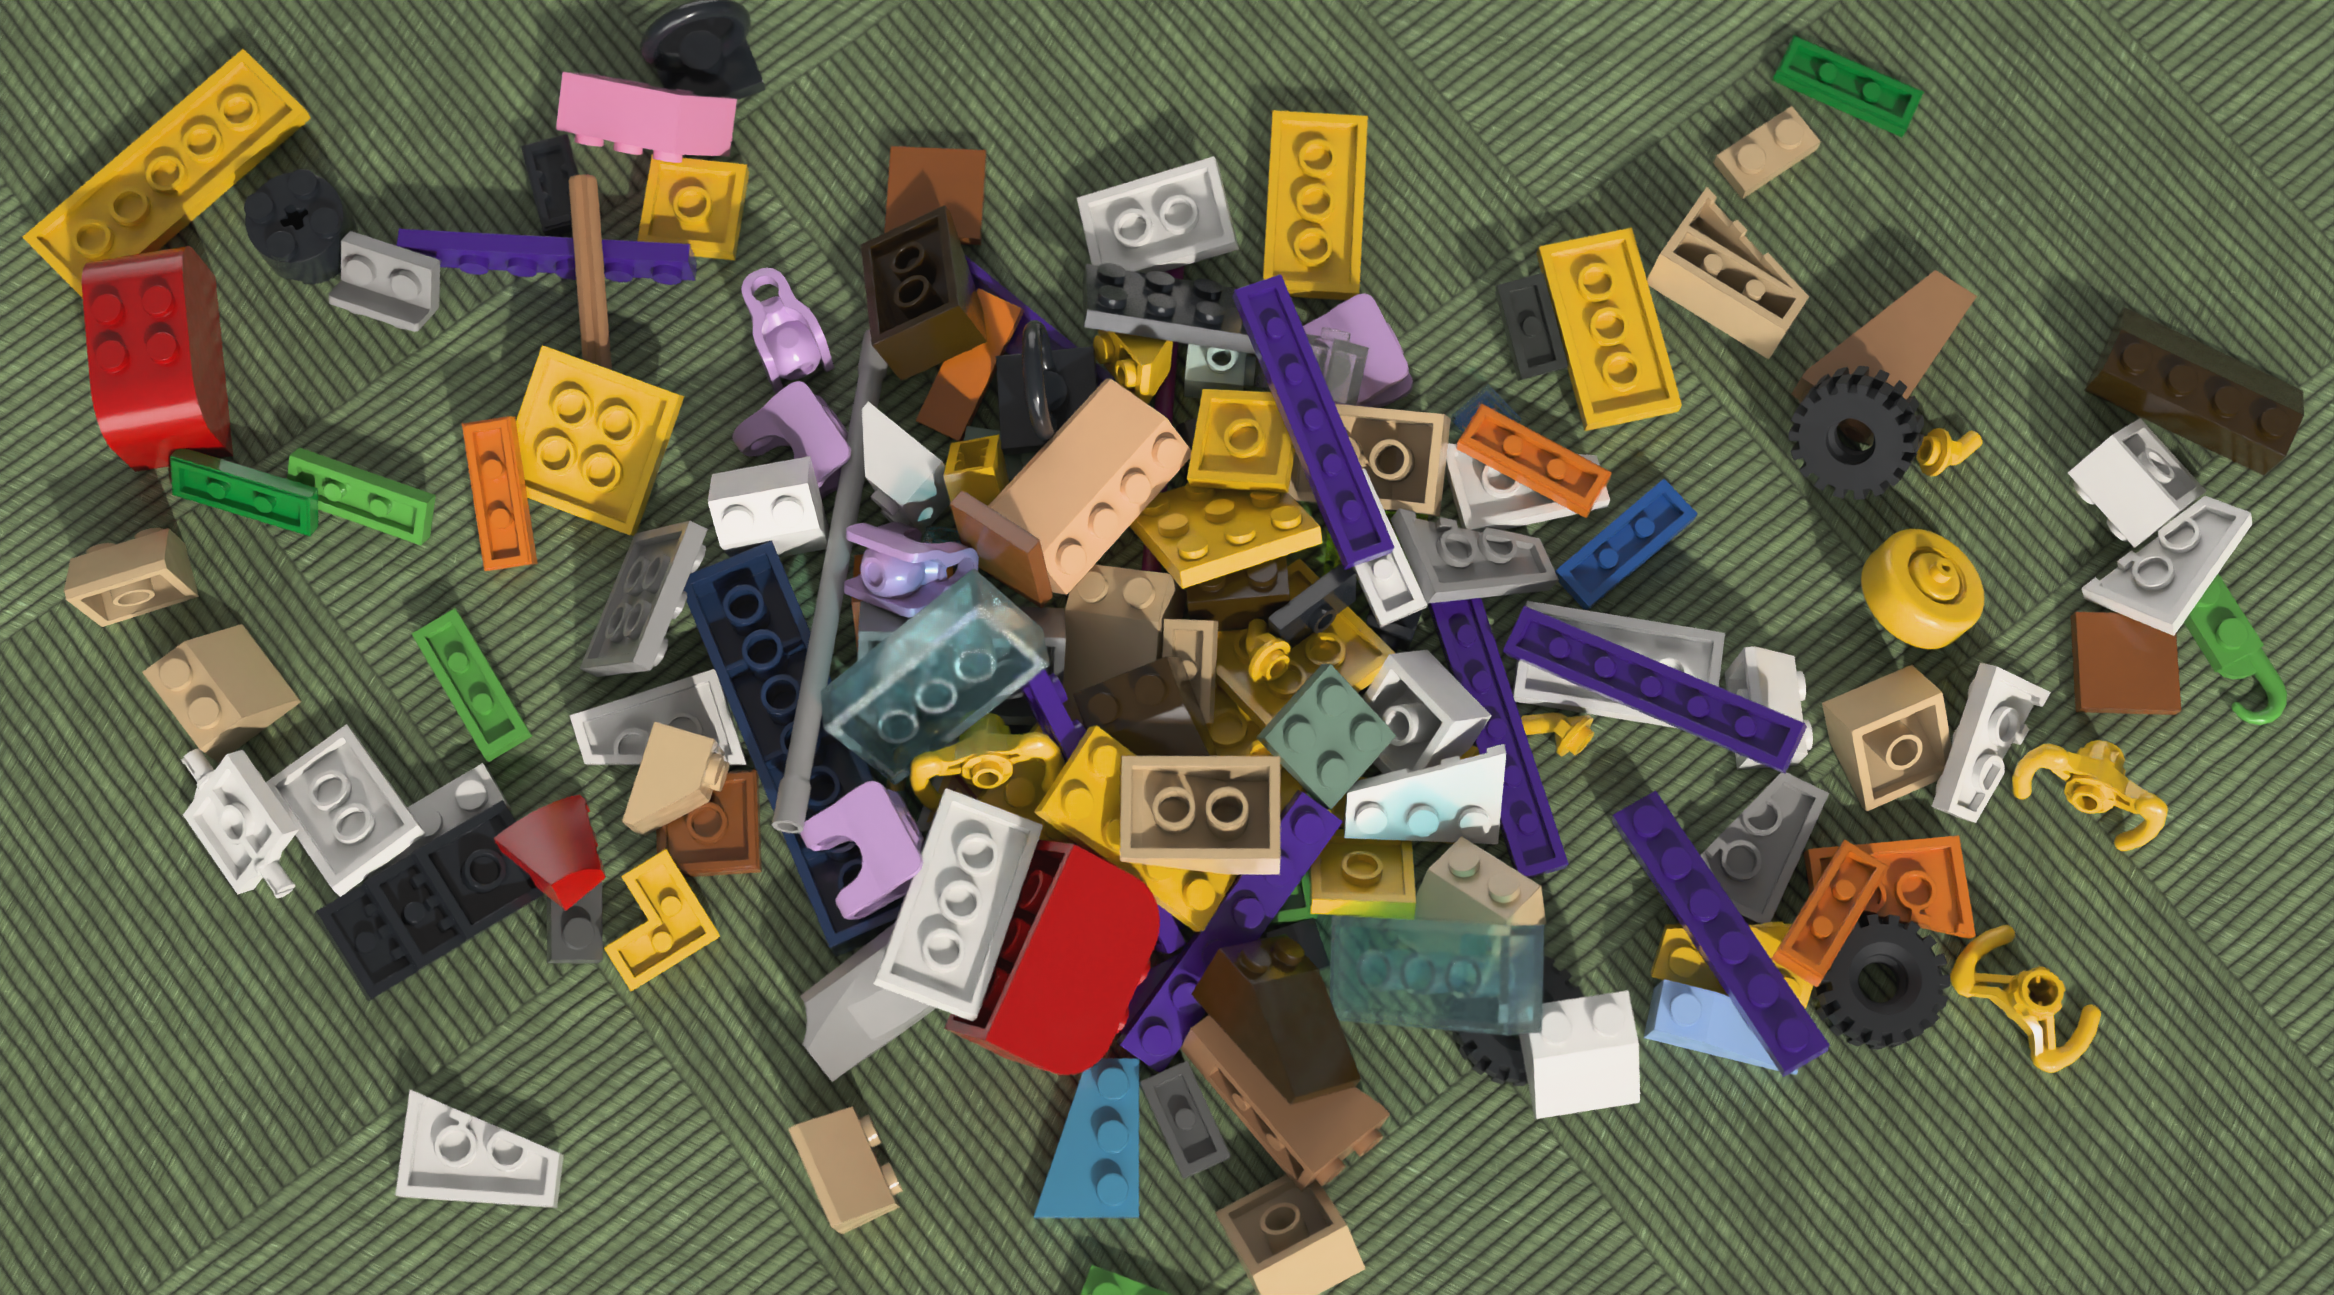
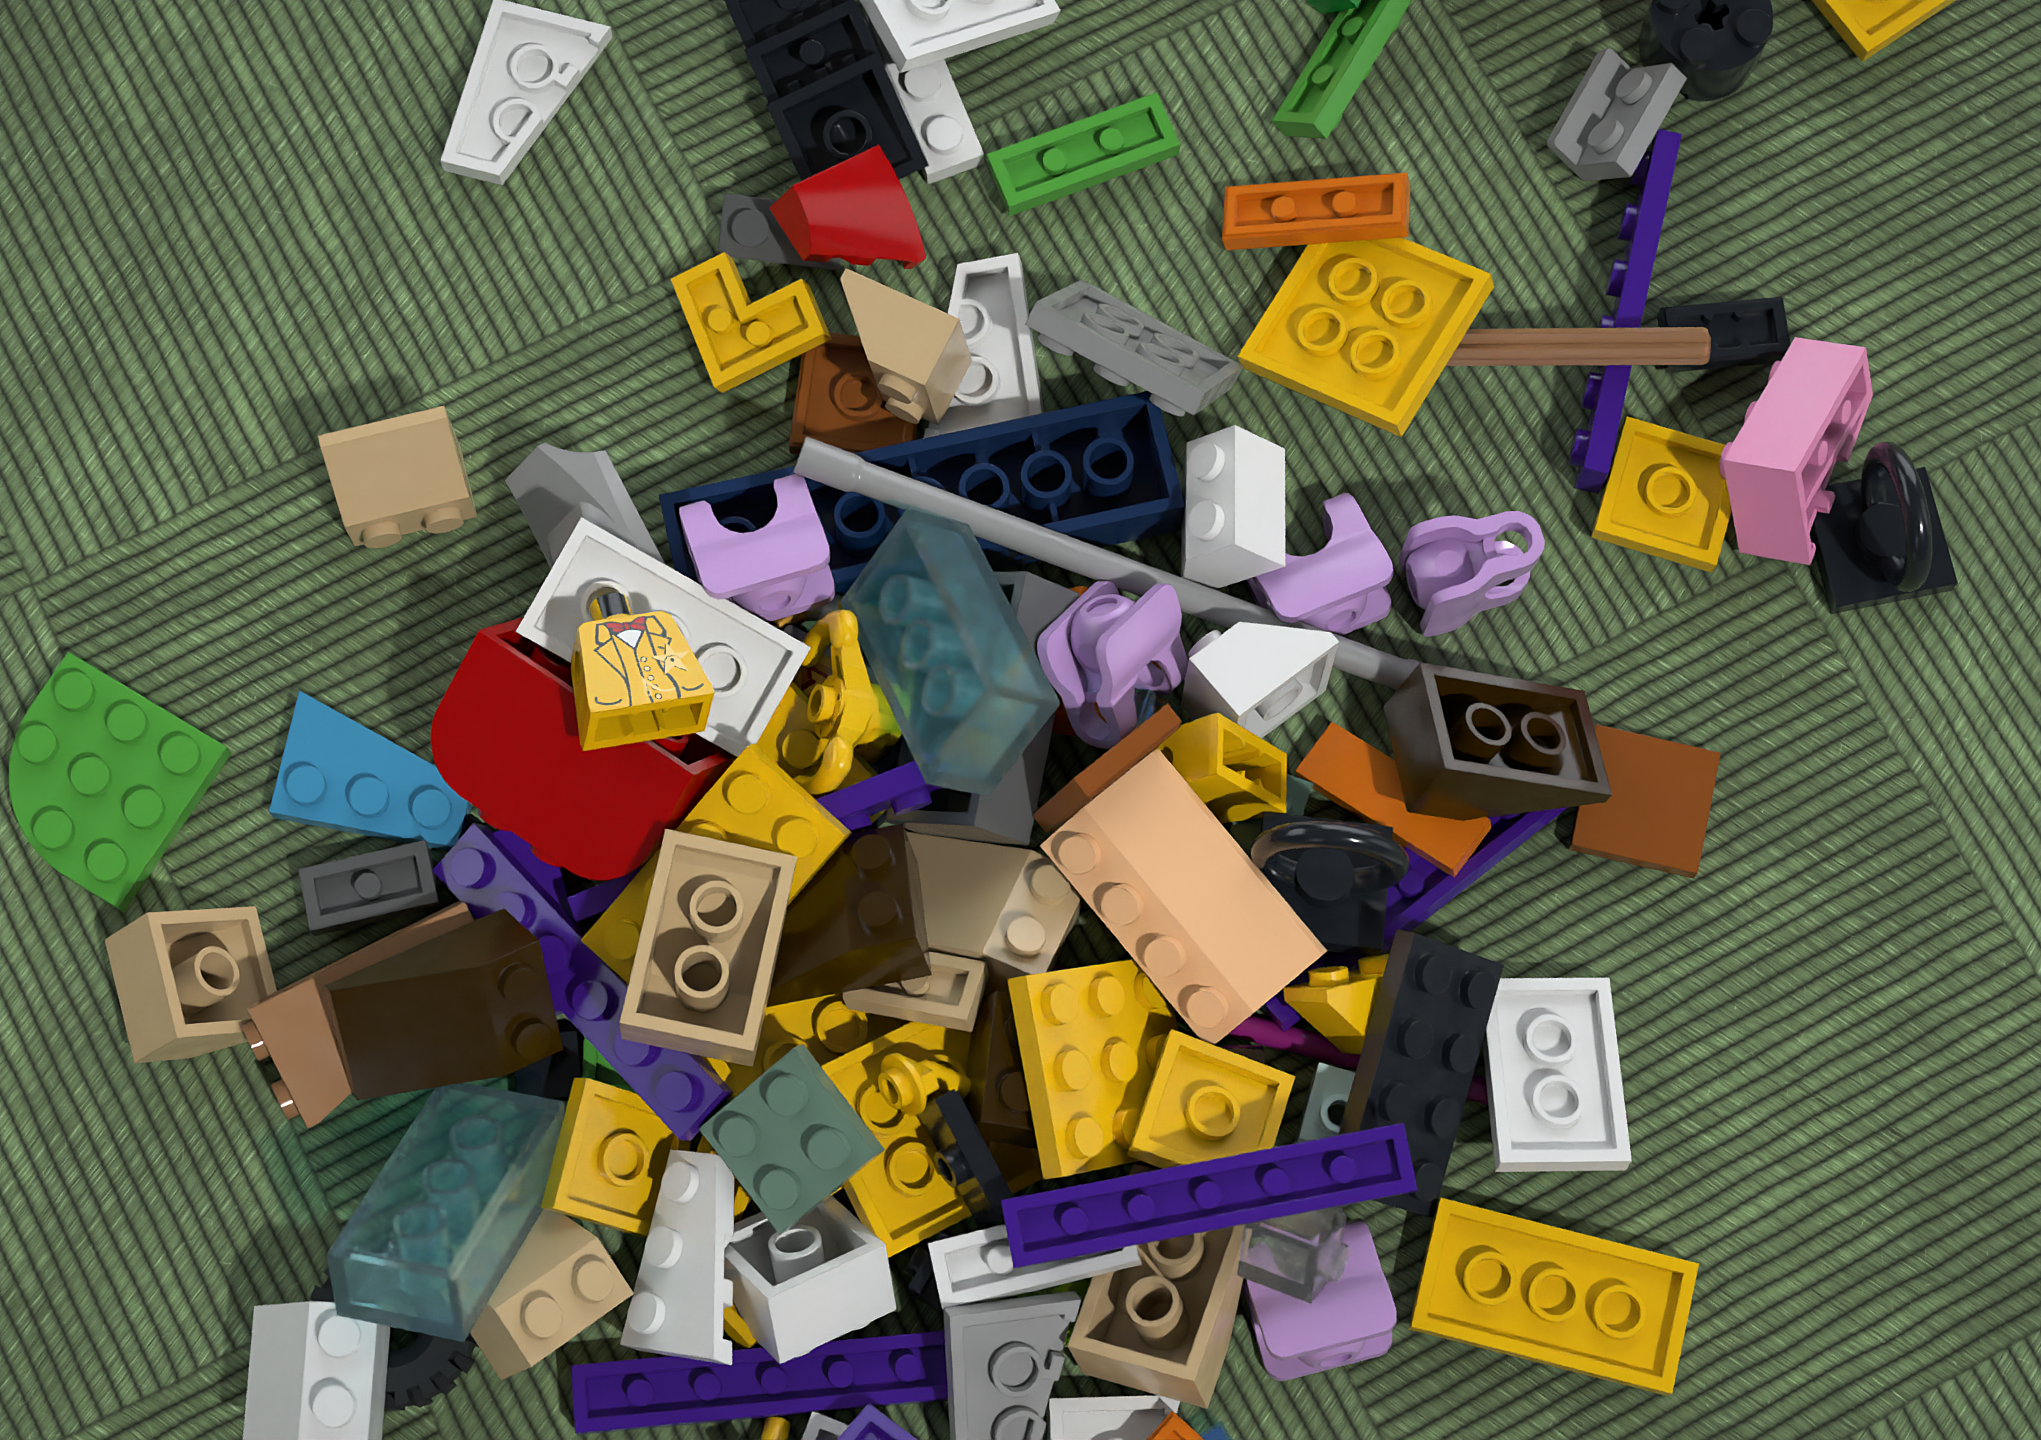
camera: 100 degrees right, 0 degrees up
(1004, 904) = (635, 677): none -> yellow torso

